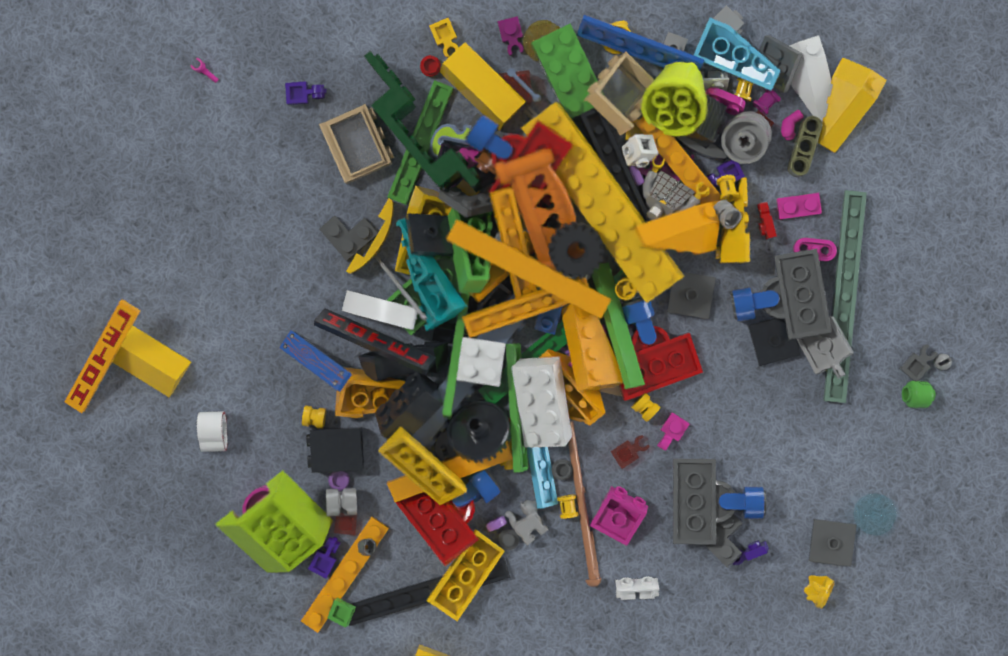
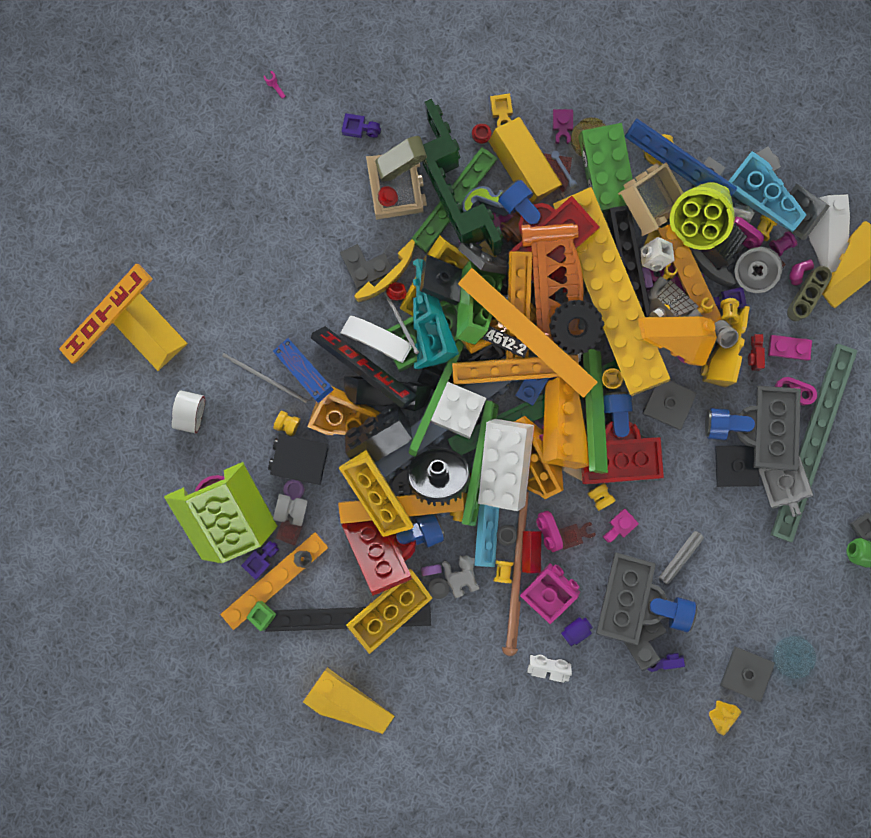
camera: 10 degrees right, 5 degrees down
(278, 376) = (264, 378): none -> light grey piece
(352, 161) = (387, 196): none -> red plate
(355, 121) = (401, 158): none -> beam
(387, 254) = (396, 291): none -> red plate
(509, 282) = (505, 341): none -> sticker
(590, 479) = (531, 551): none -> red slope
(603, 454) = (552, 537): none -> dark pink plate
(654, 545) = (577, 631): none -> dark purple brick
(740, 446) = (681, 557): none -> light grey axle

